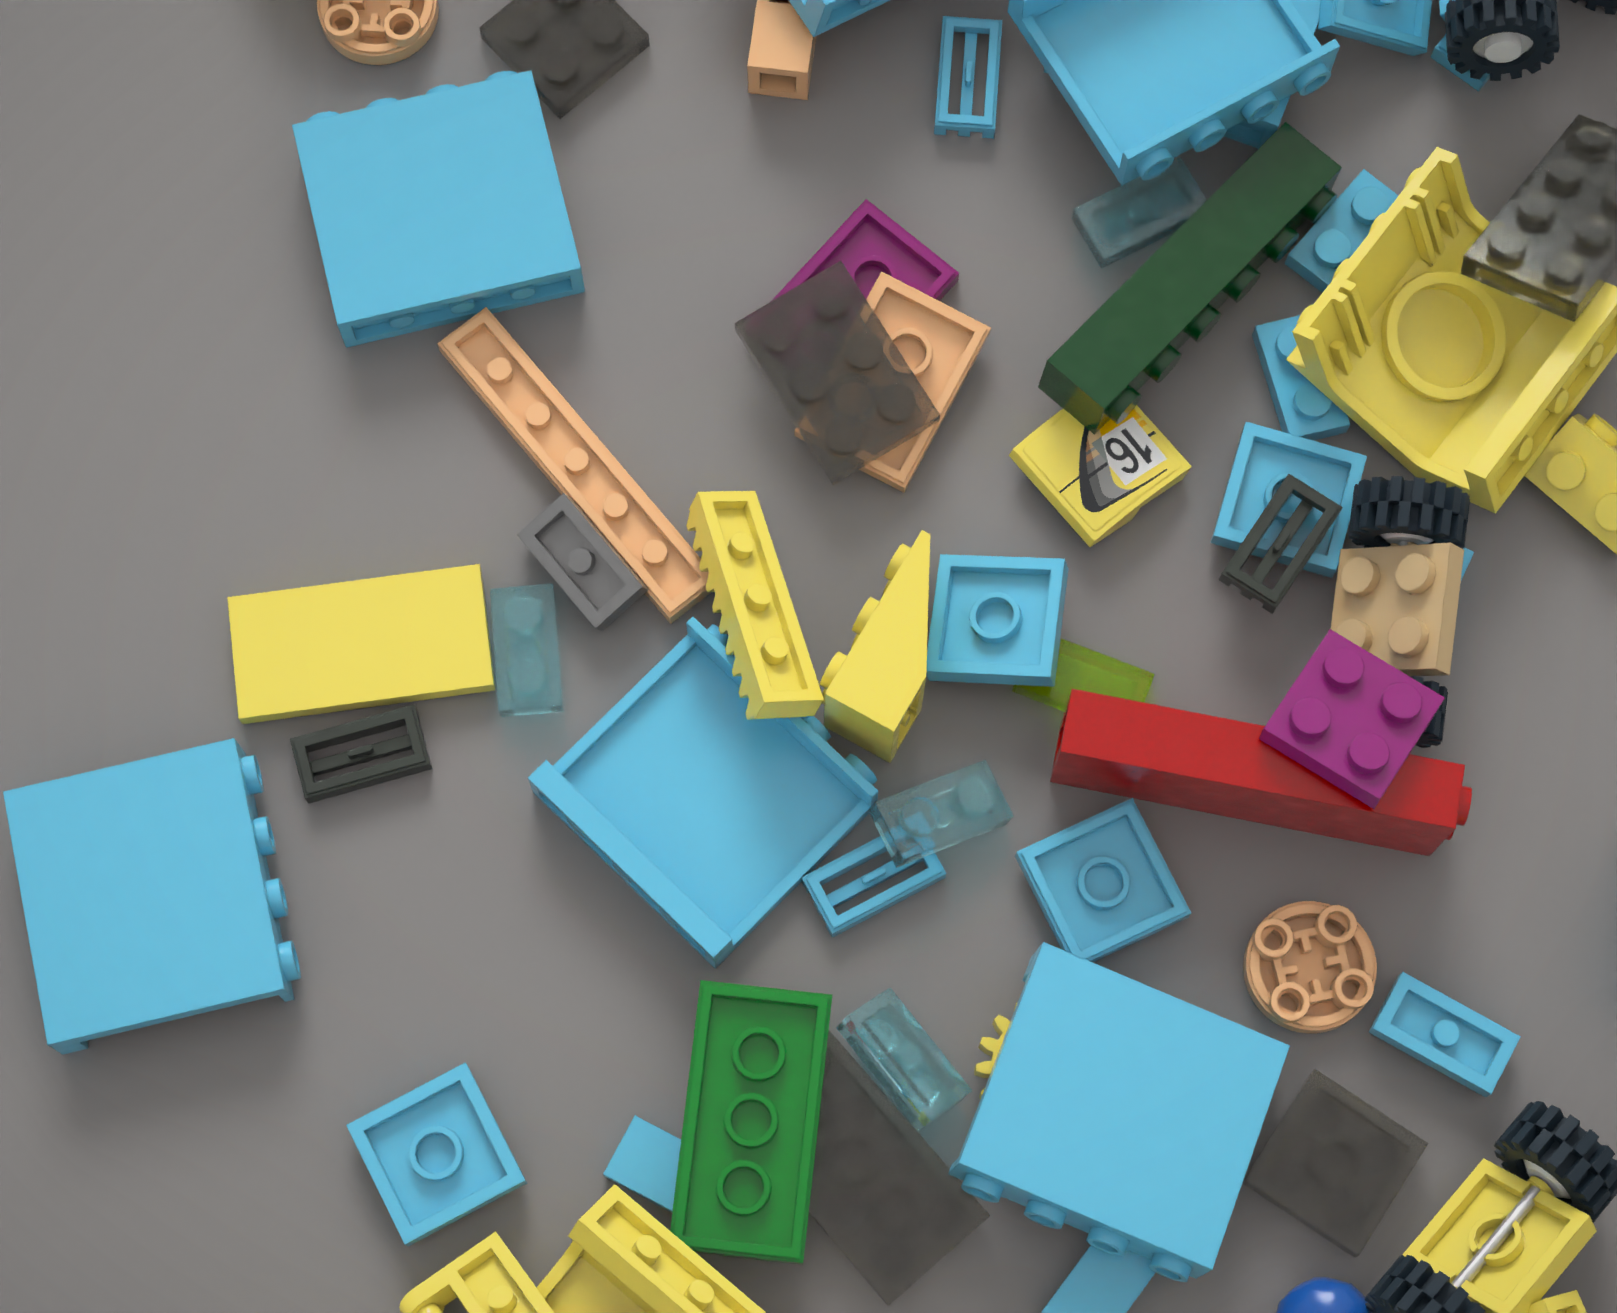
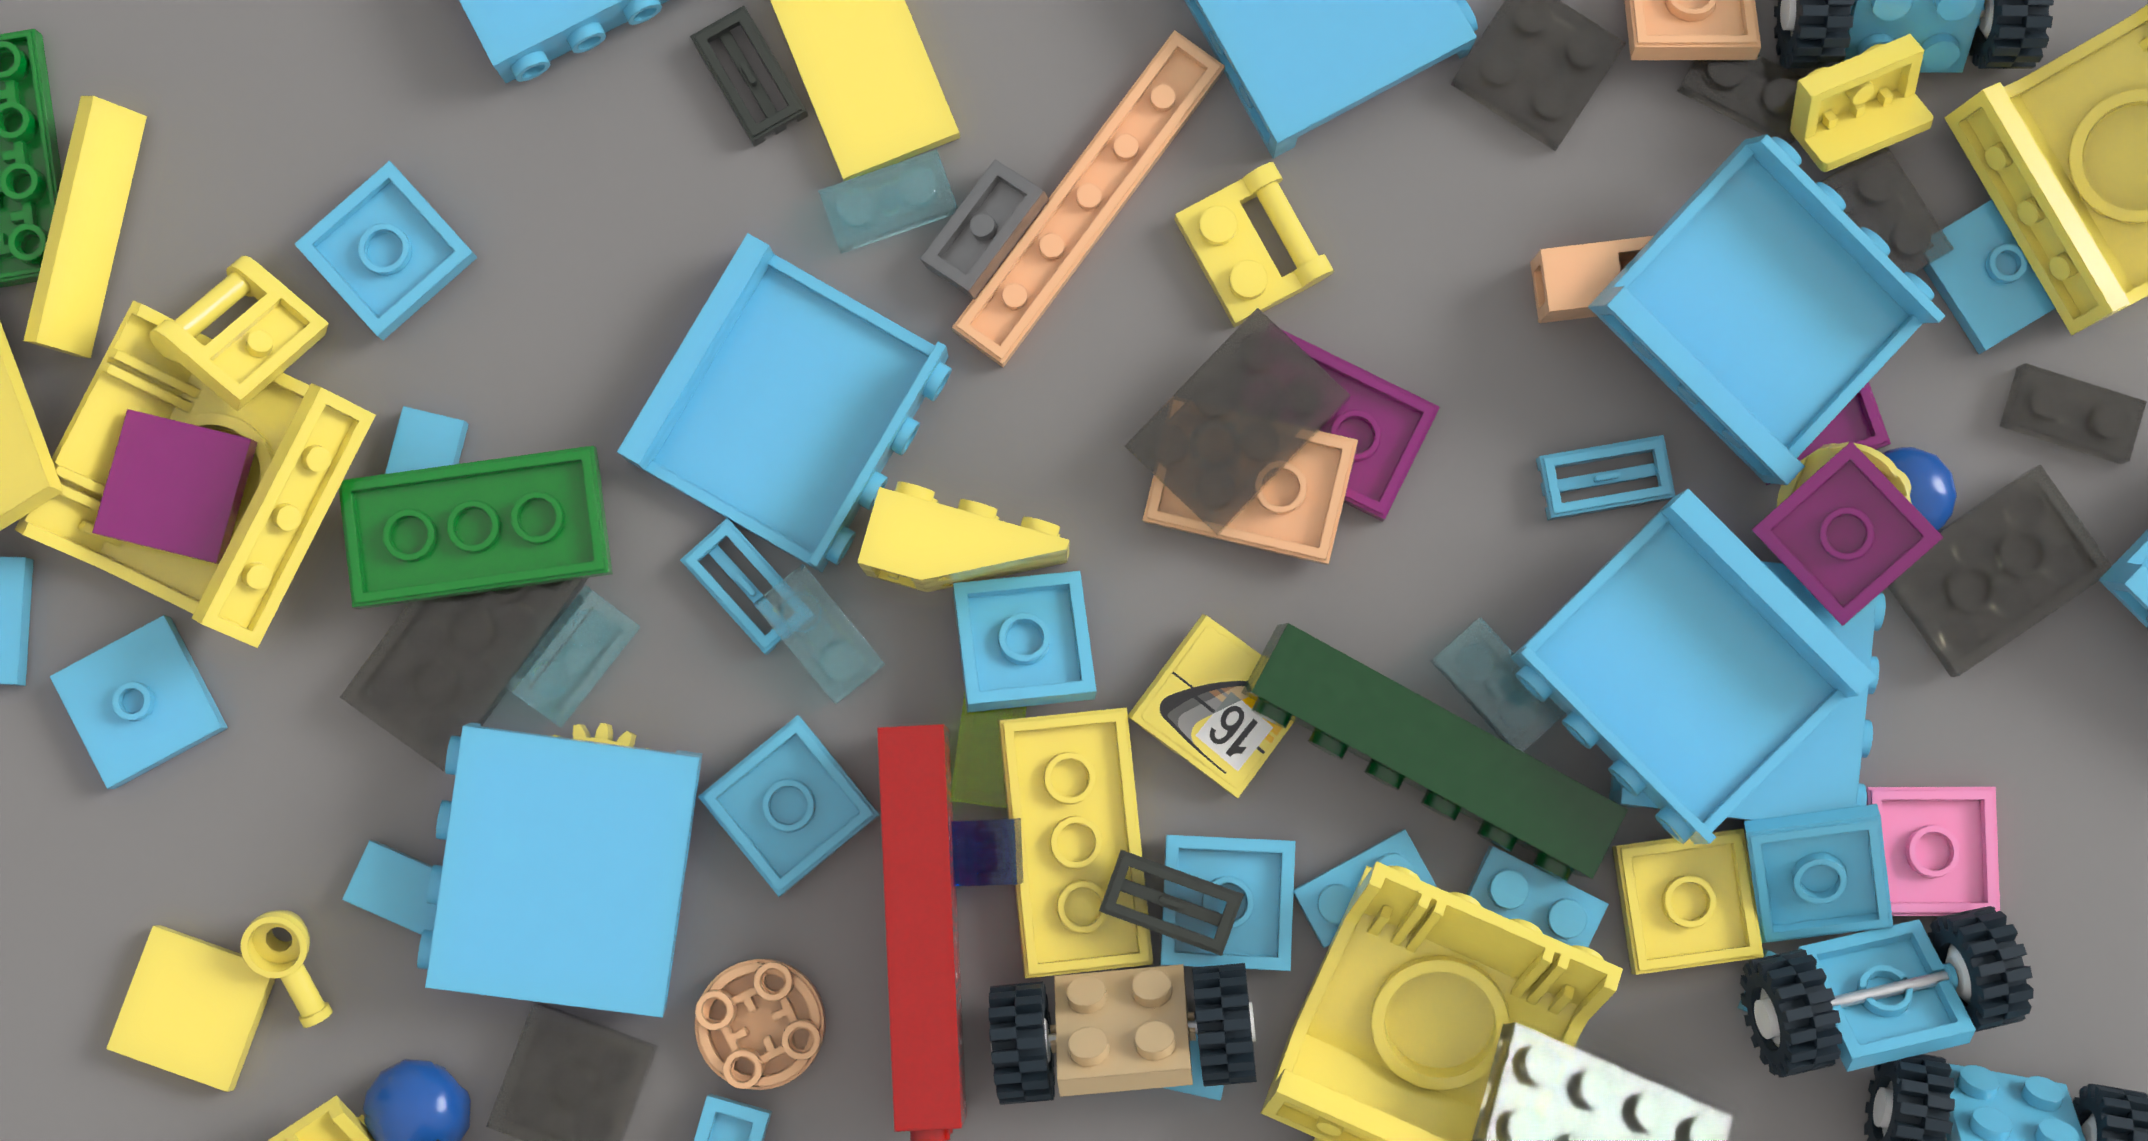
camera: 75 degrees right, 10 degrees up
(670, 344) = (1236, 256): none -> light yellow plate
(753, 605) = (970, 401): light yellow gear -> none
(1187, 627) = (1077, 811): none -> light yellow tile
(1196, 690) = (987, 852): none -> clear blue tile
(1351, 718) = (978, 1005): magenta plate -> none
(1378, 104) = (1687, 902): none -> light yellow plate

